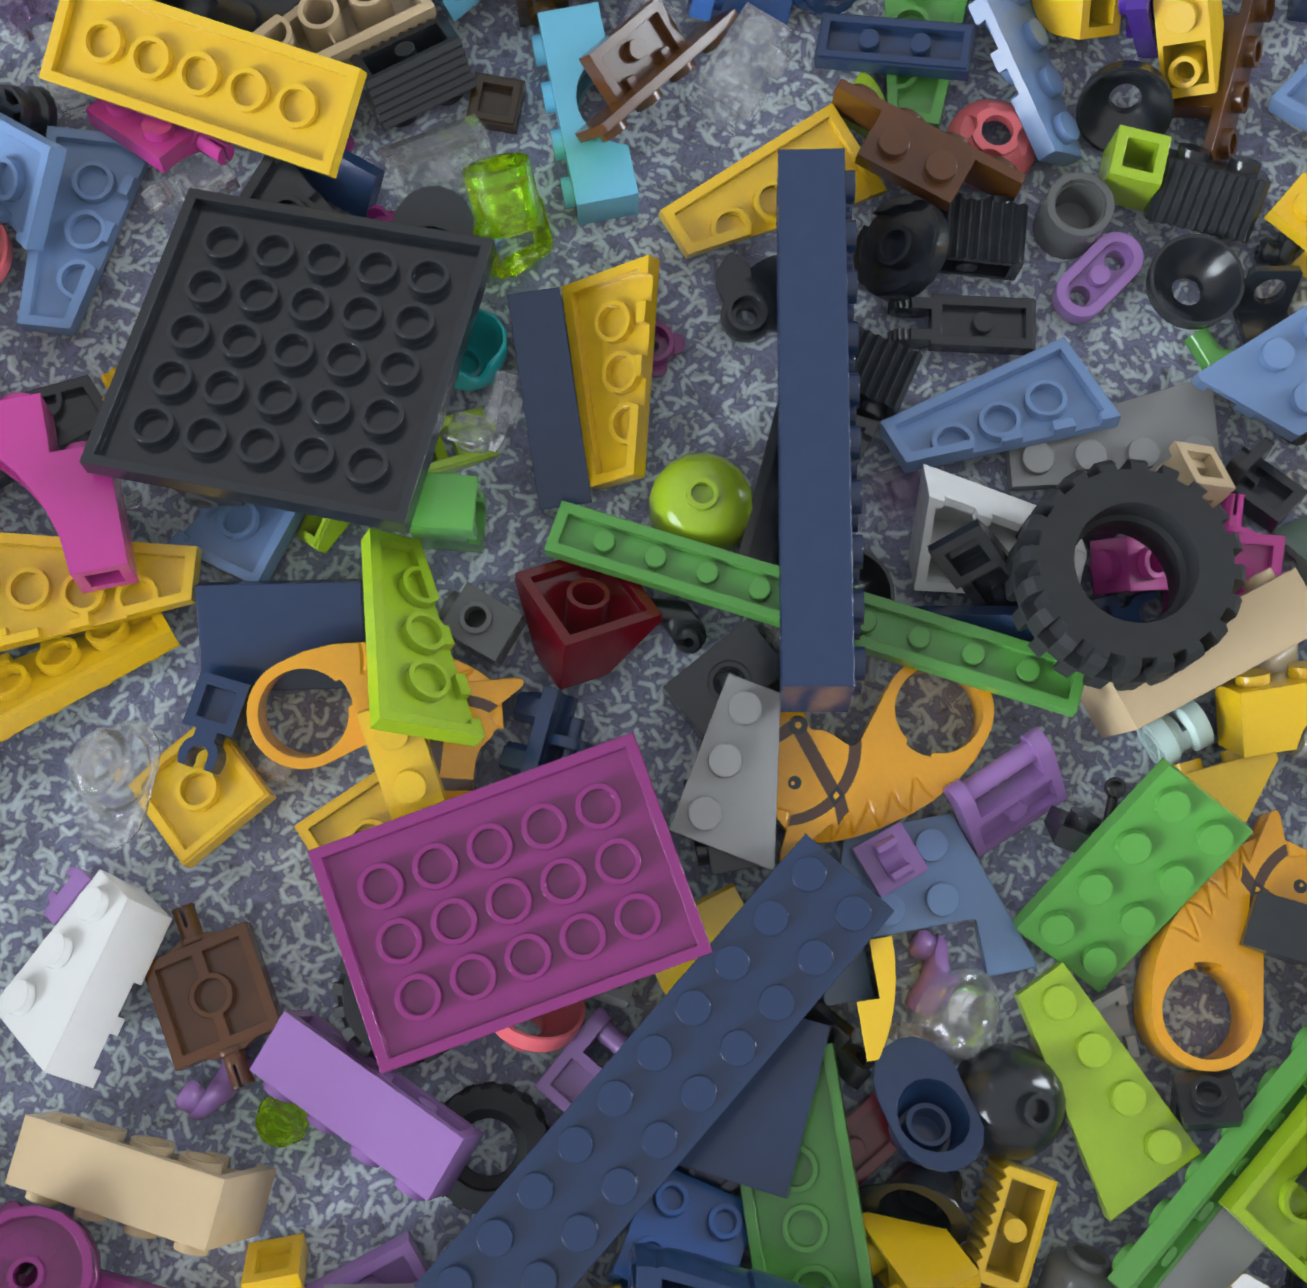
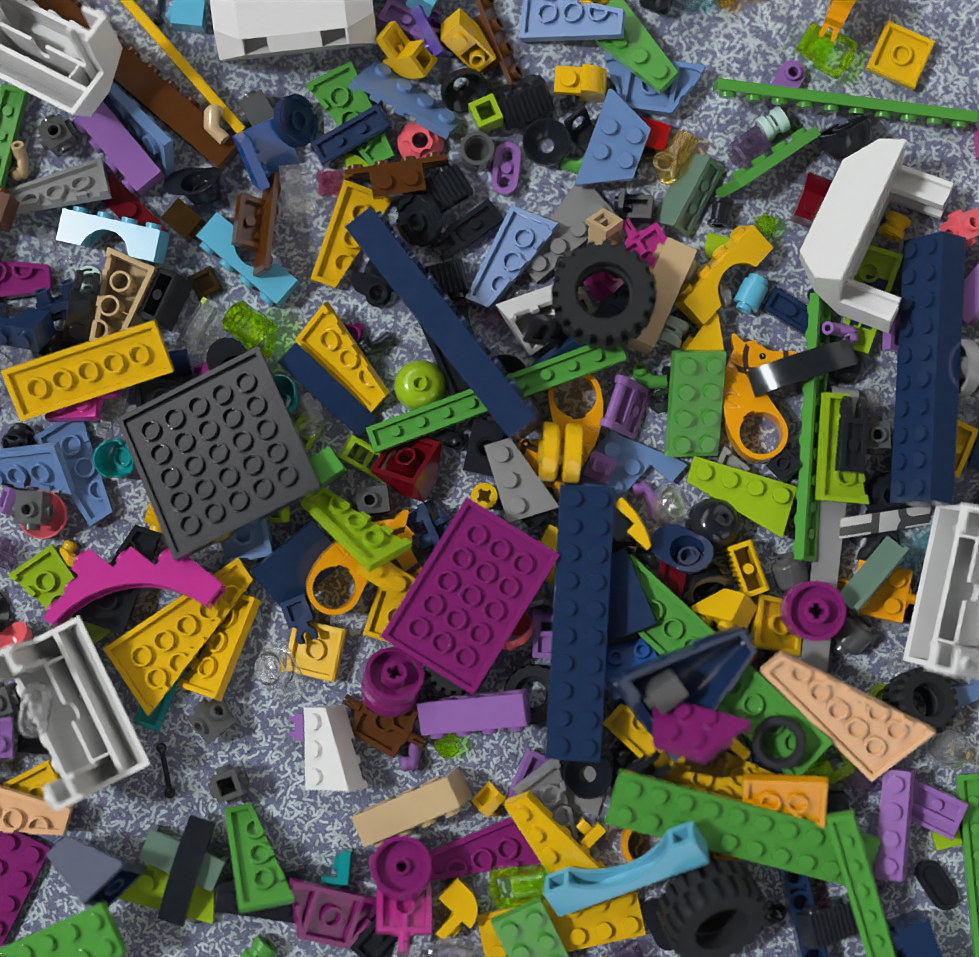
camera: 35 degrees left, 5 degrees up
(132, 247) = (113, 459): none -> teal hair
(269, 942) = (391, 682): none -> magenta wheel
(507, 515) = (346, 449): none -> lime slope
(664, 766) = (485, 499): none -> yellow wheel
(681, 393) = (377, 345): none -> black arm
(803, 82) = (325, 176): none -> clear pink plate
(854, 787) = (560, 452): none -> yellow wheel
(1075, 773) = (647, 379): none -> bright green arm

